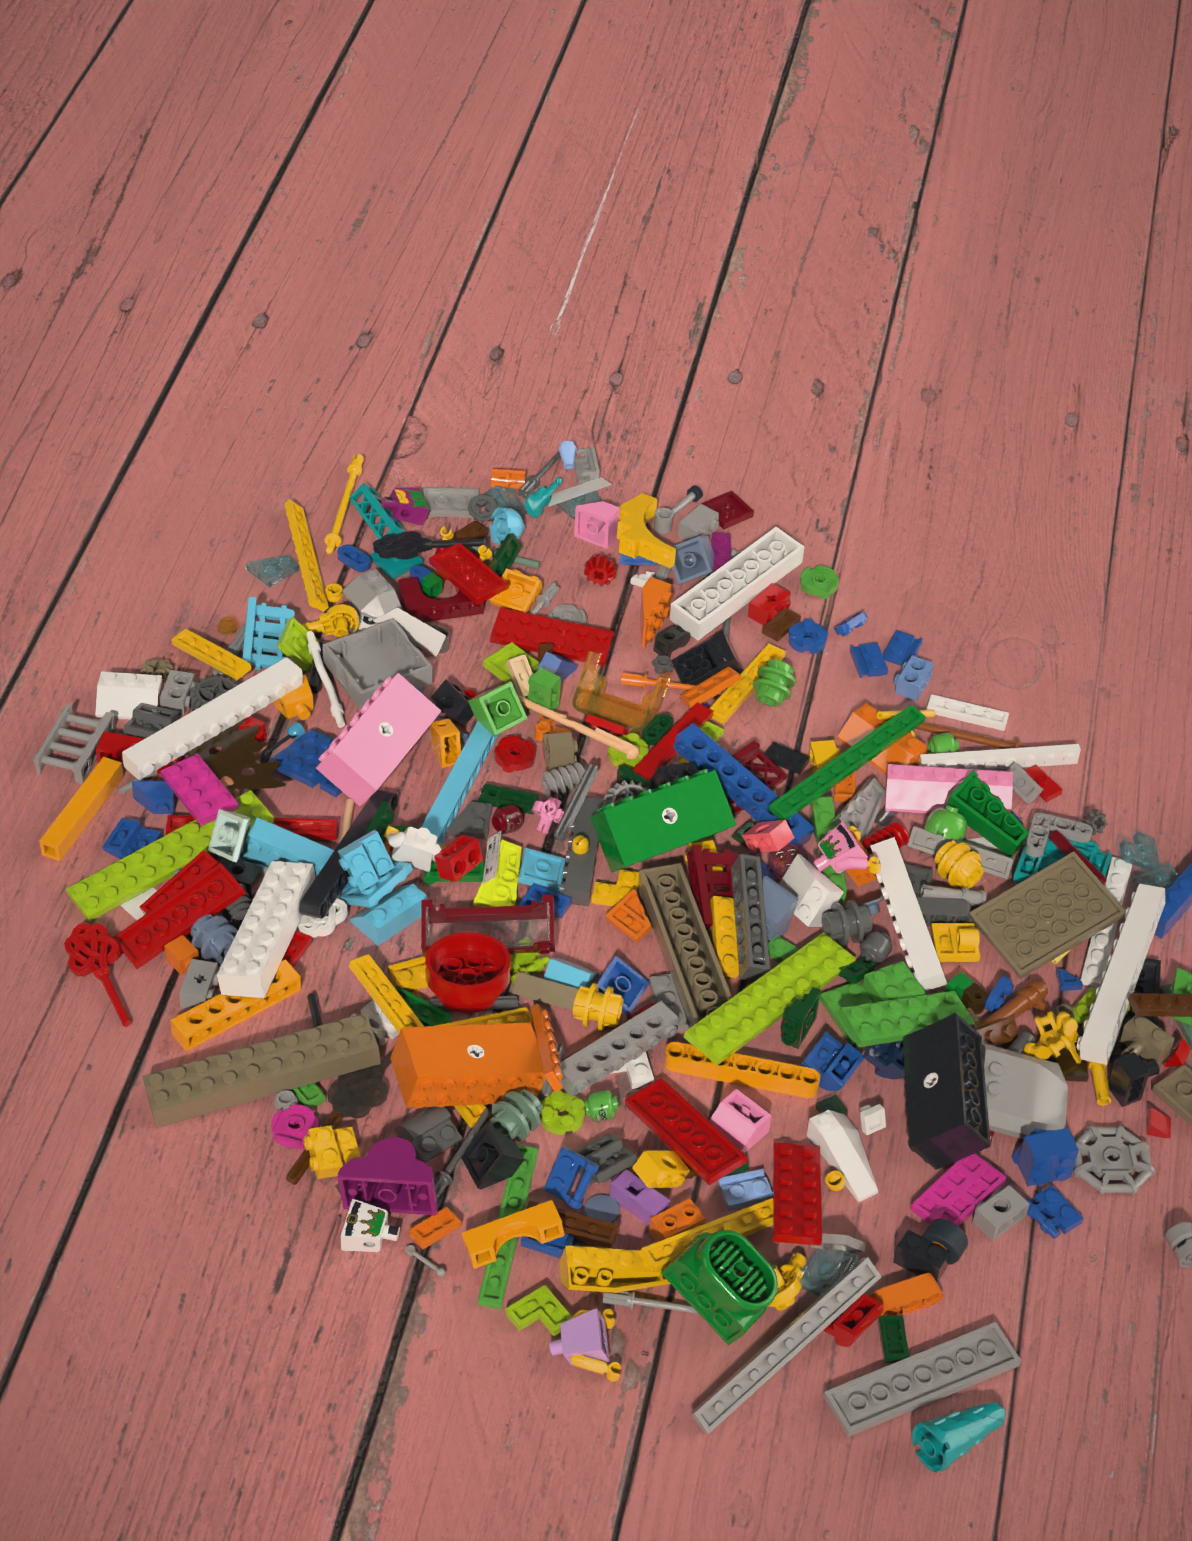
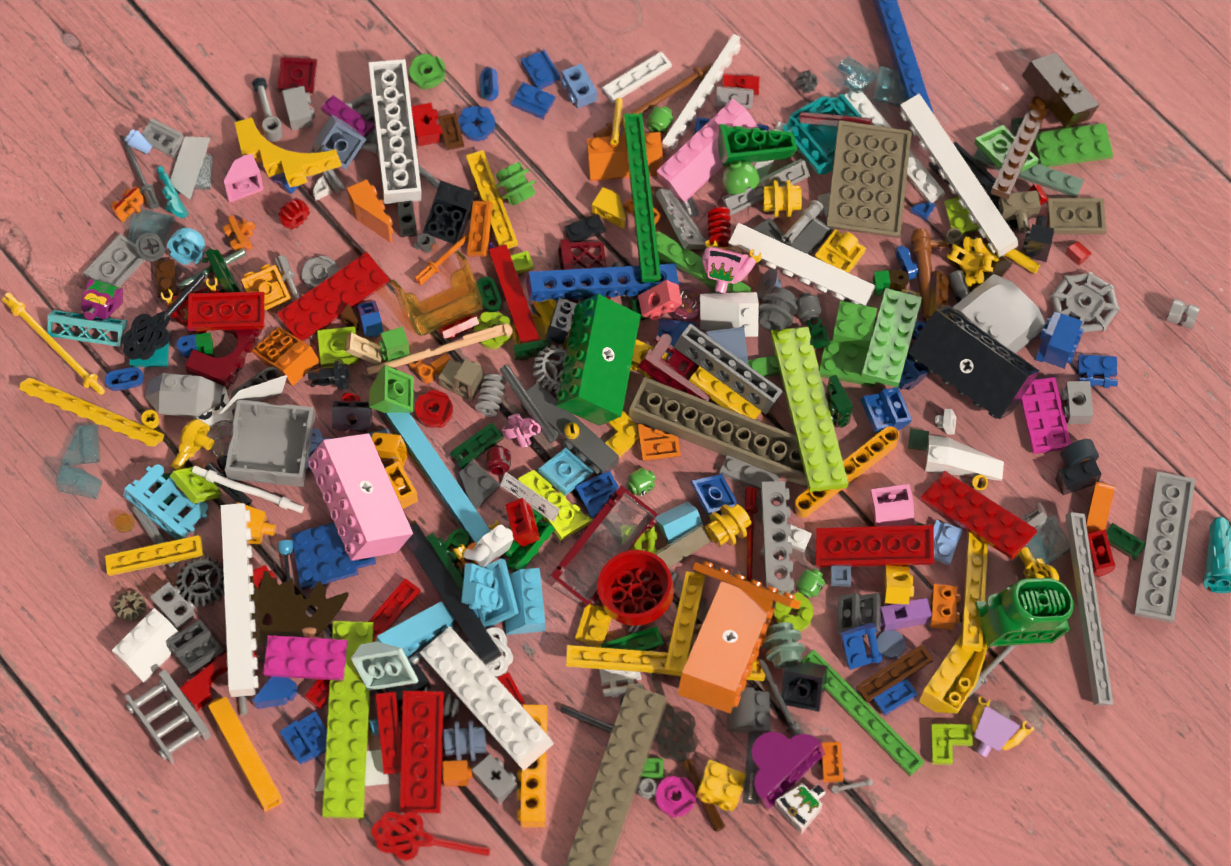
camera: 50 degrees left, 20 degrees up
(236, 579) = (78, 482): none -> clear light blue slope
(347, 817) = (410, 574): tan bar -> none
(419, 767) = (402, 485): none -> light orange brick
(446, 887) = (524, 554): none -> green plate
(469, 638) = (286, 354): none -> orange slope
(482, 673) = (331, 375): none -> black piece
(537, 1222) = (888, 692): light orange arch -> none
(551, 551) = (241, 231): none -> orange hips
(583, 927) = (641, 482): none -> bright green head
(632, 1126) = (840, 576): none -> sand blue plate
(1074, 831) = (793, 114): light grey beam -> none

